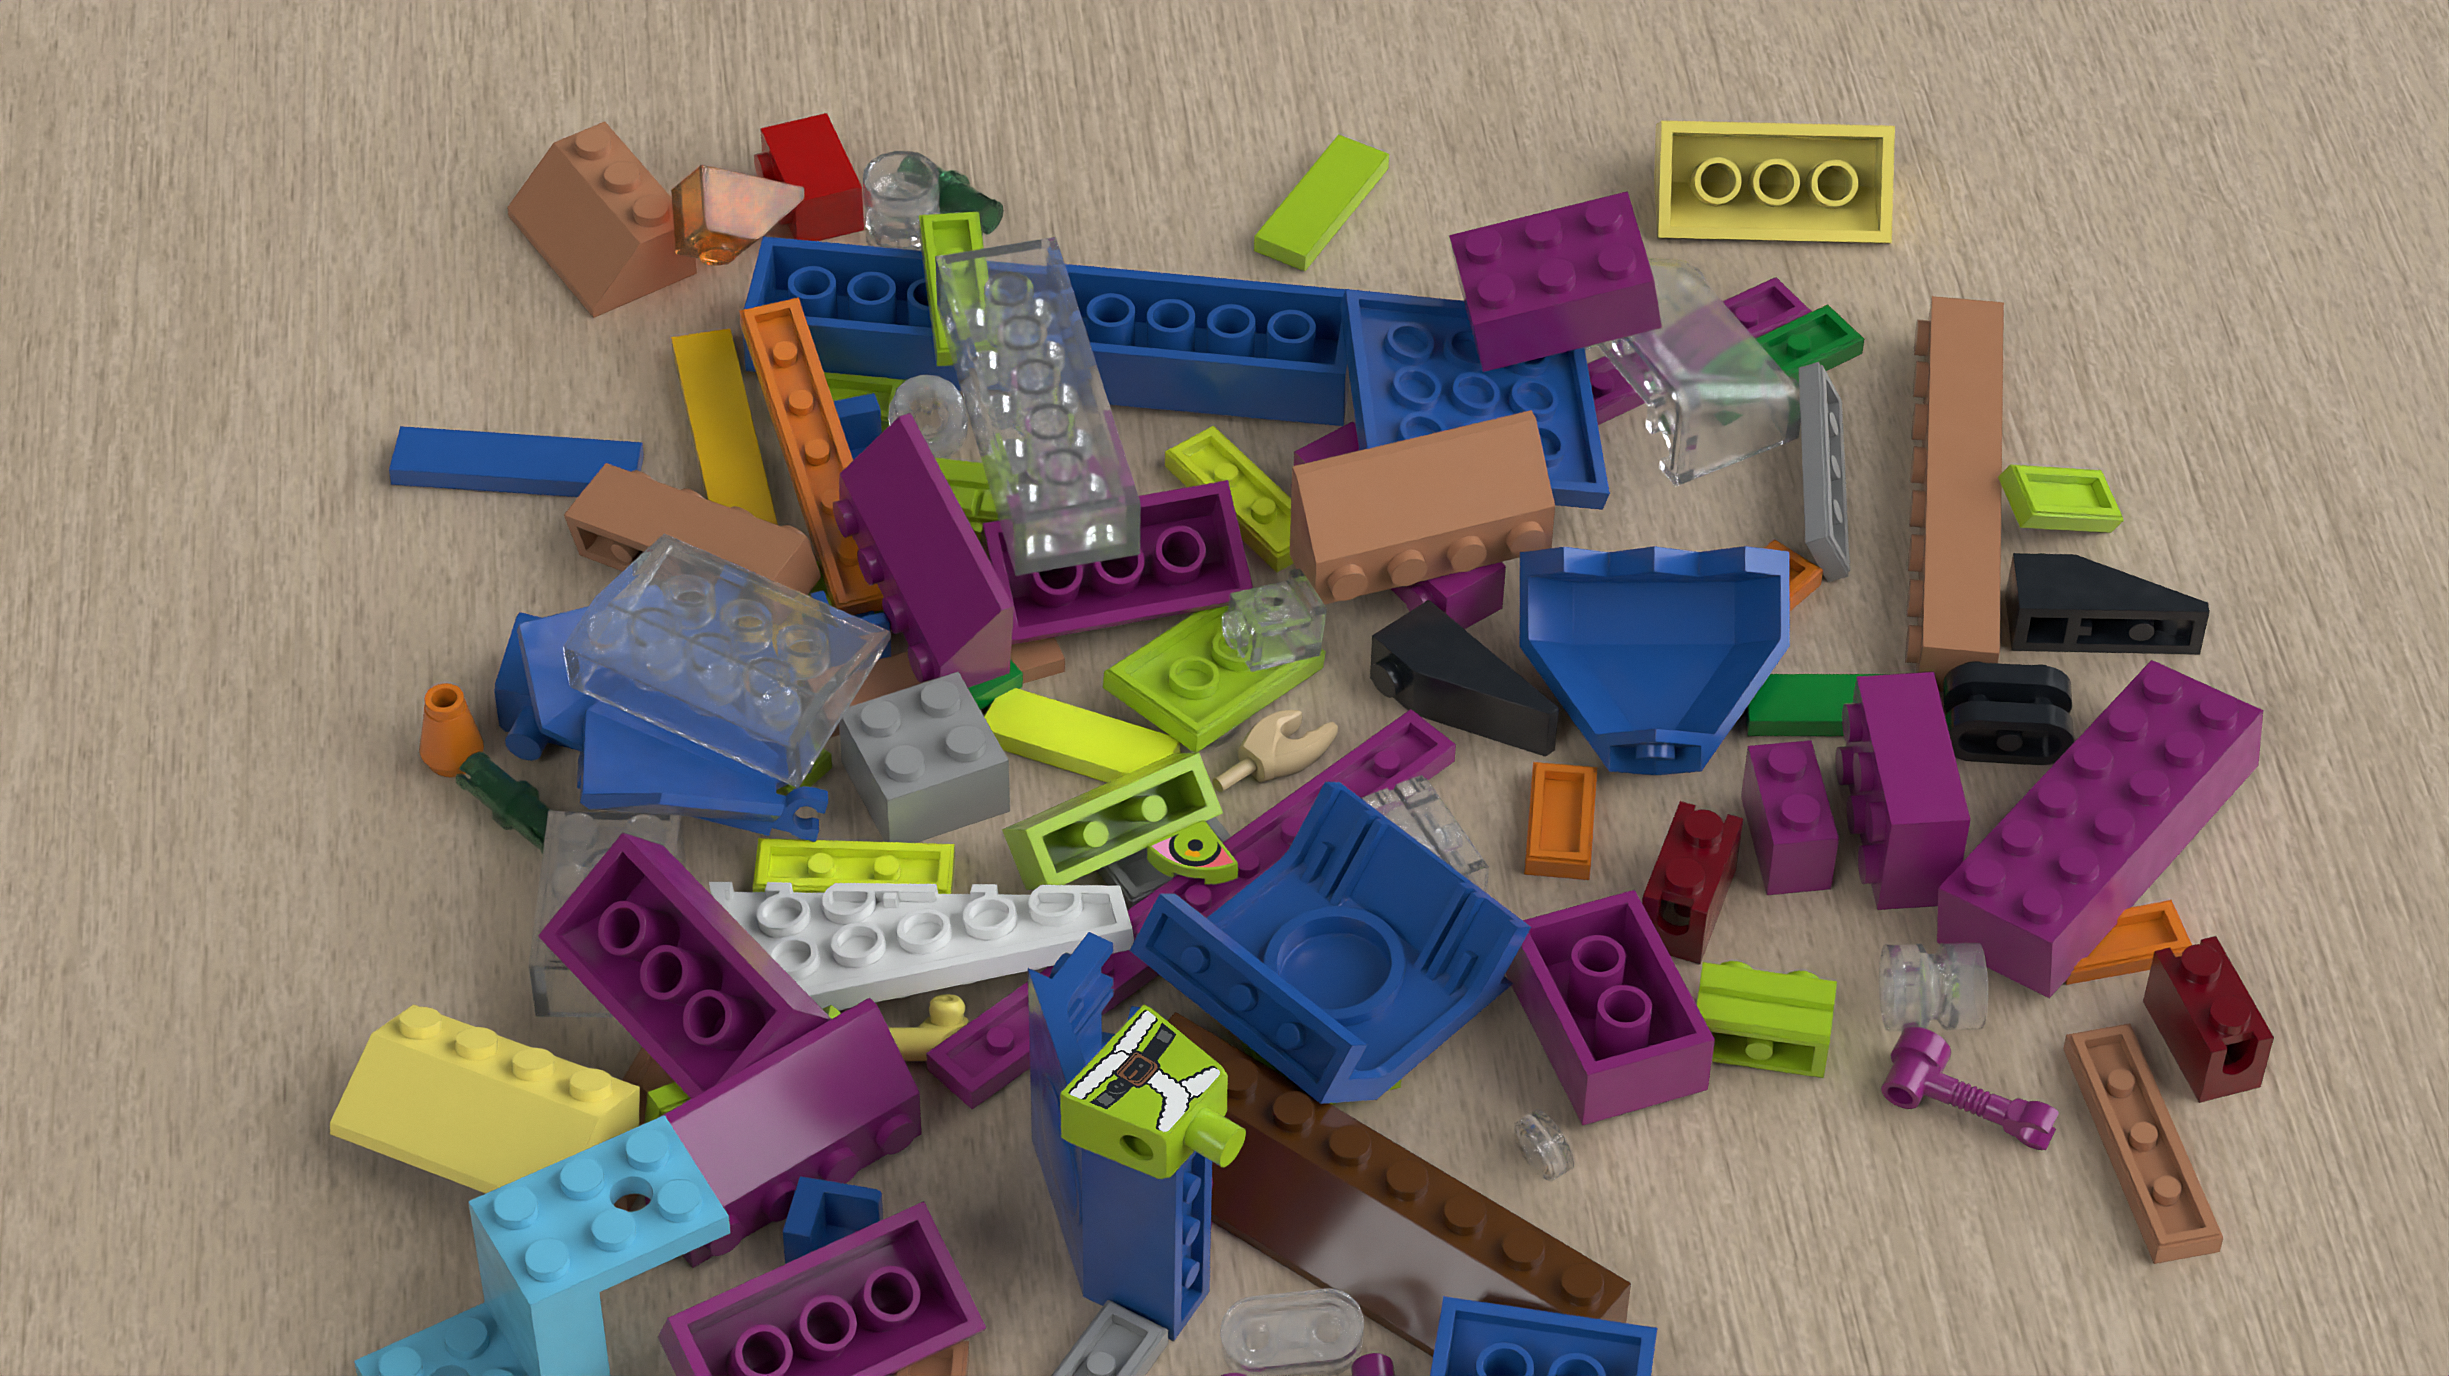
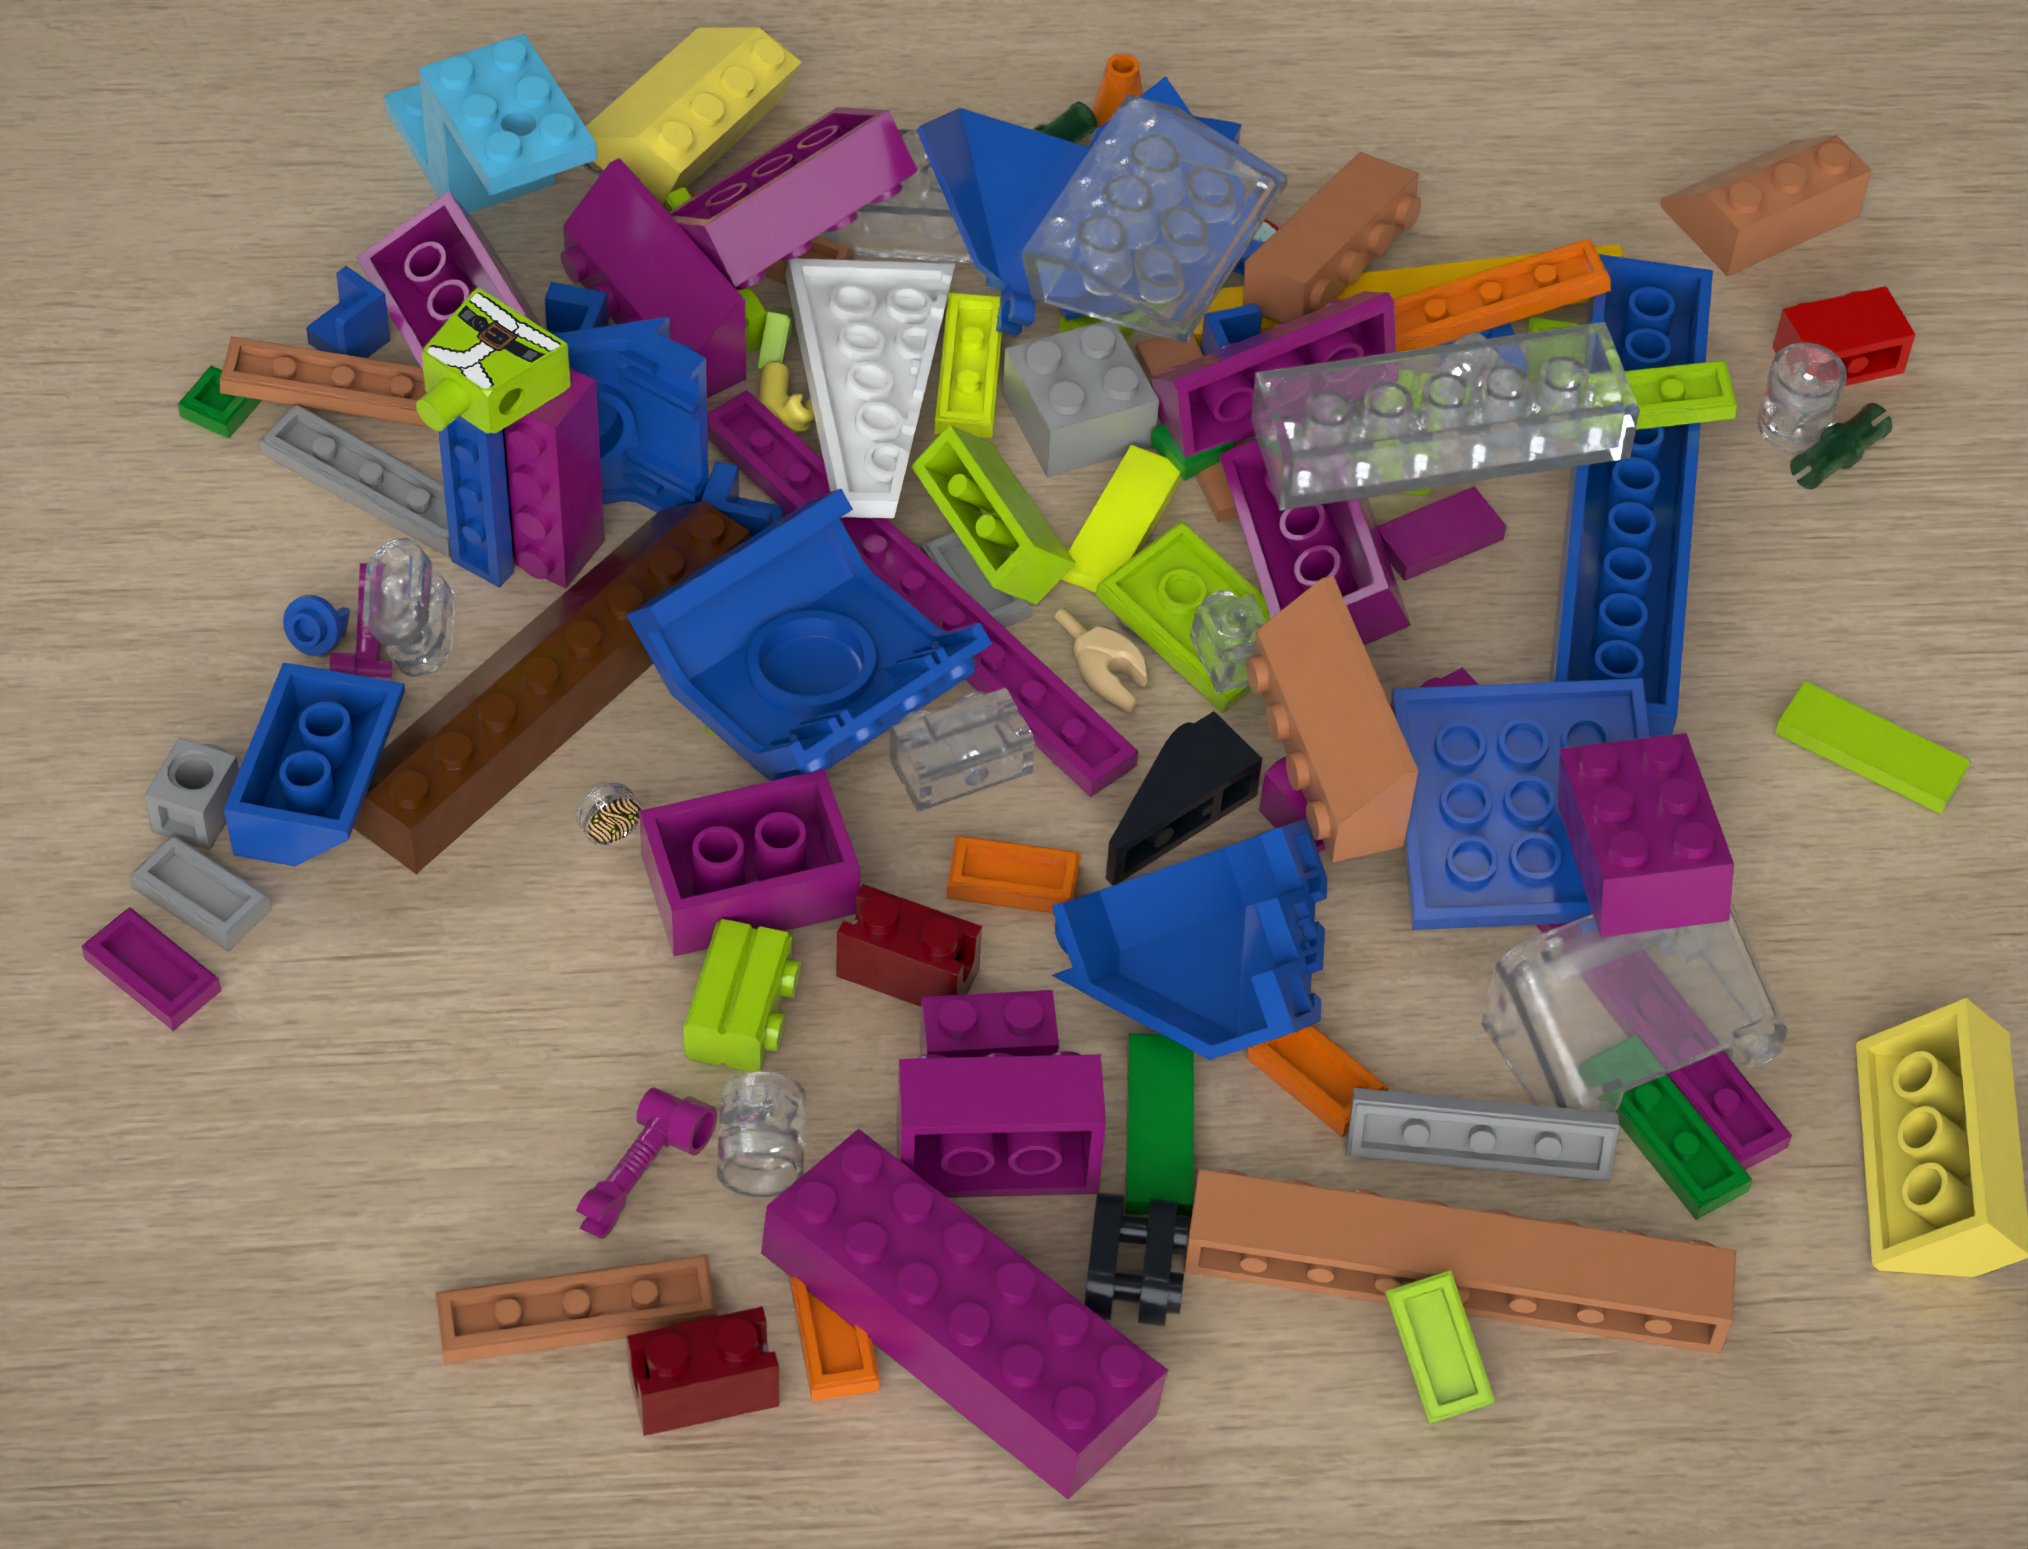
camera: 90 degrees right, 5 degrees up
(505, 461) = (1458, 150): blue tile -> none
(726, 212) = (1739, 248): clear orange slope -> none
(1193, 854) = (949, 569): lime tile -> none
(1259, 503) = (1469, 640): neon yellow tile -> none
(2093, 608) = (1289, 1350): black slope -> none

